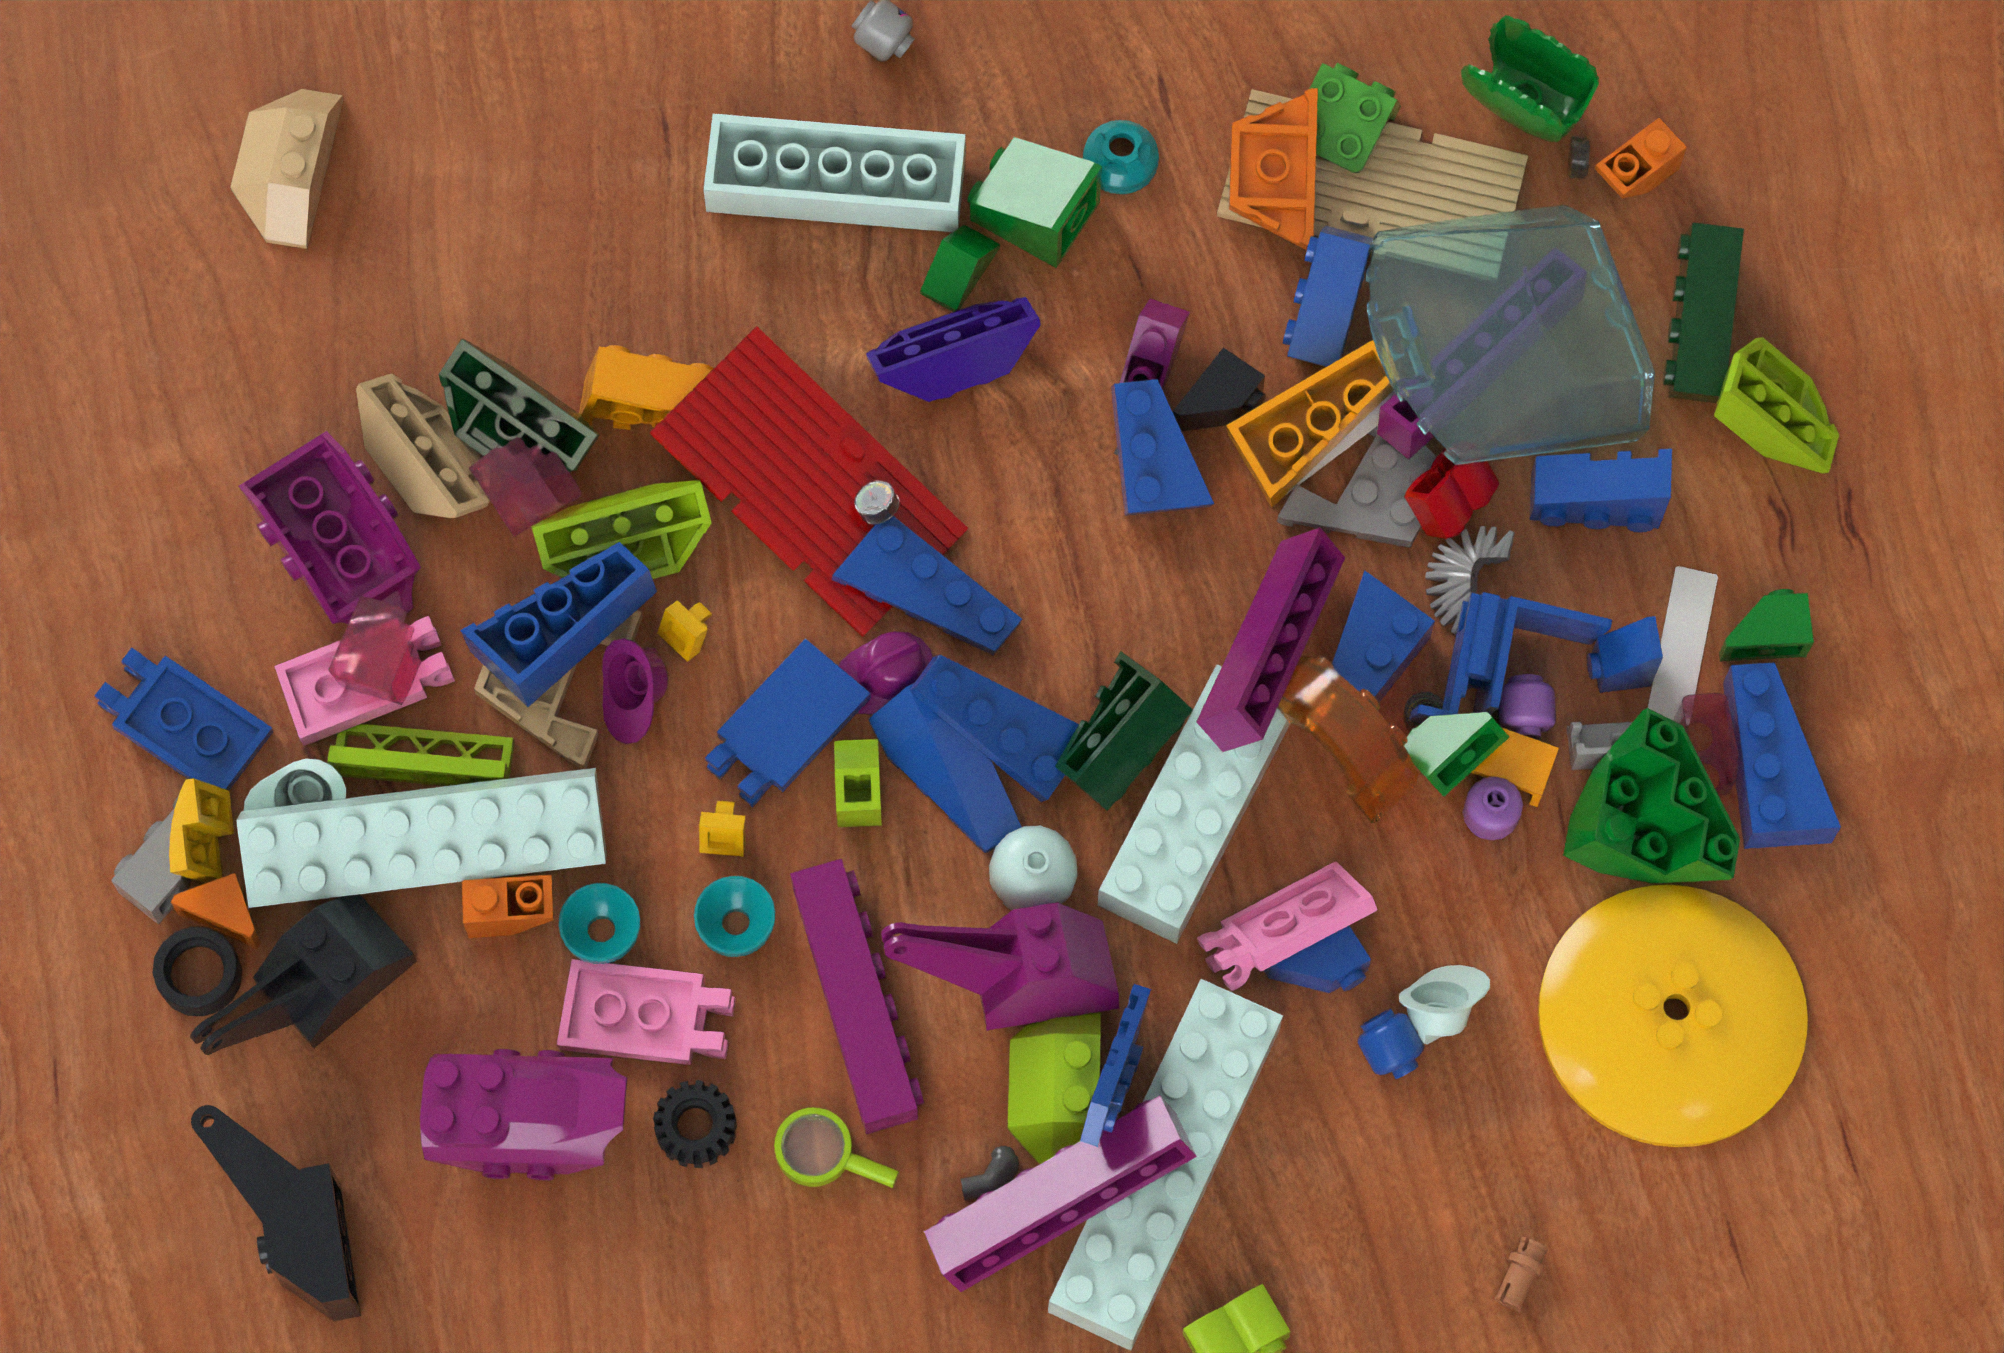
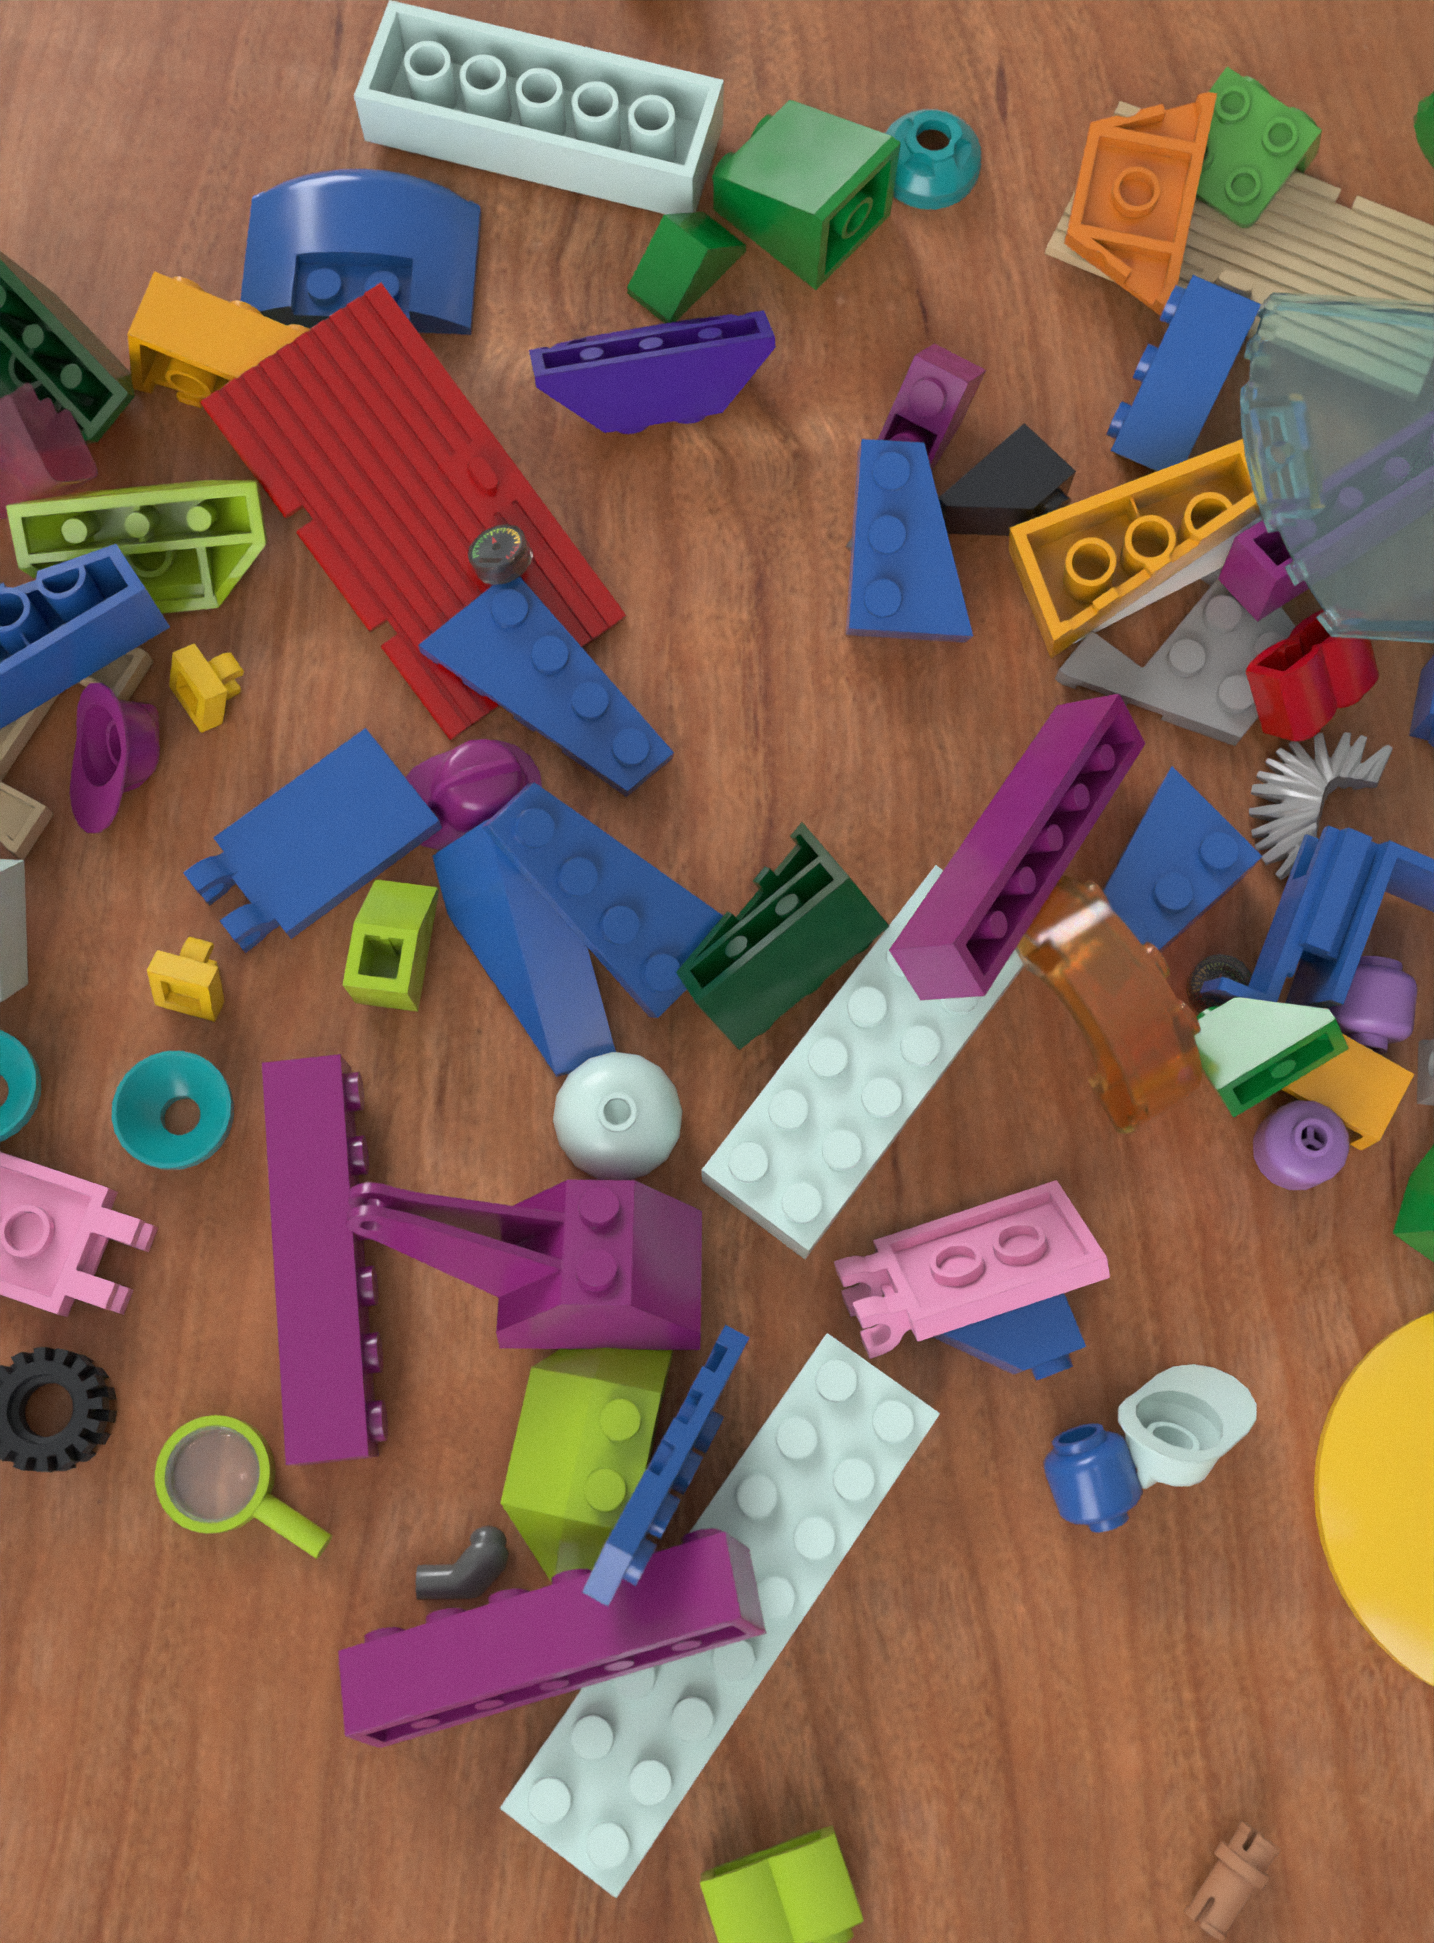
camera: 10 degrees right, 5 degrees up
(716, 290) = (345, 231): none -> blue slope

